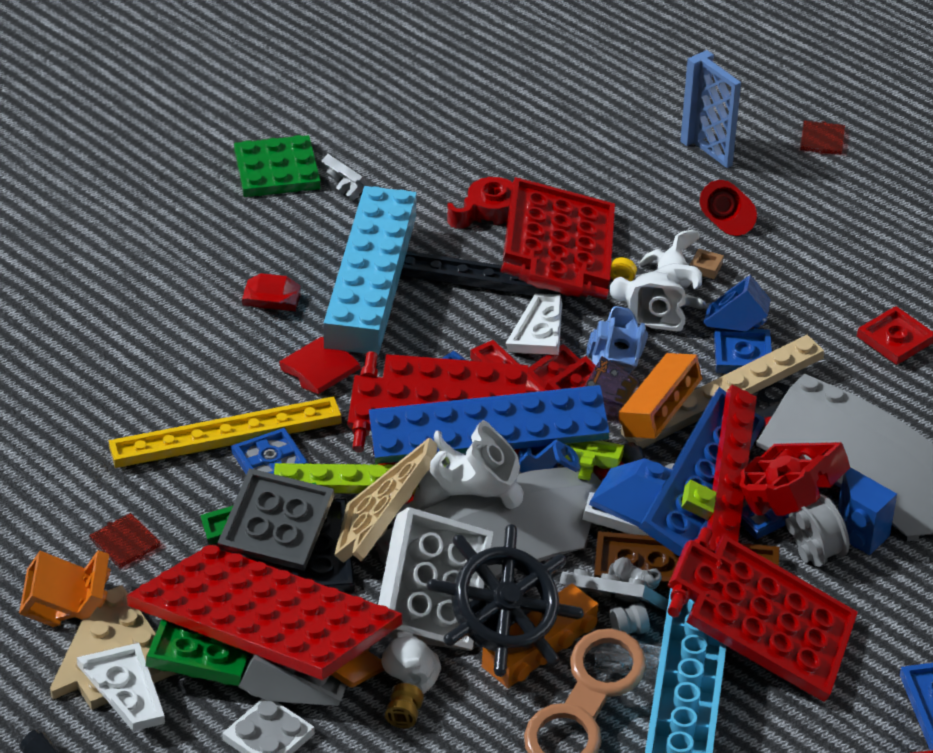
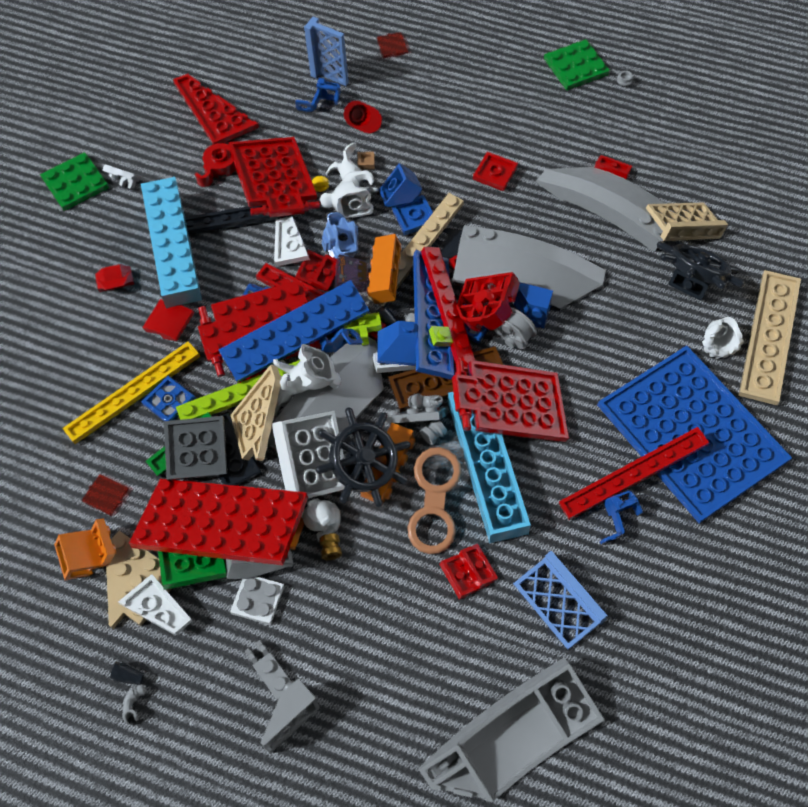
camera: 20 degrees left, 20 degrees up
(513, 143) = (214, 114): none -> red wing
(682, 162) = (321, 93): none -> blue piece

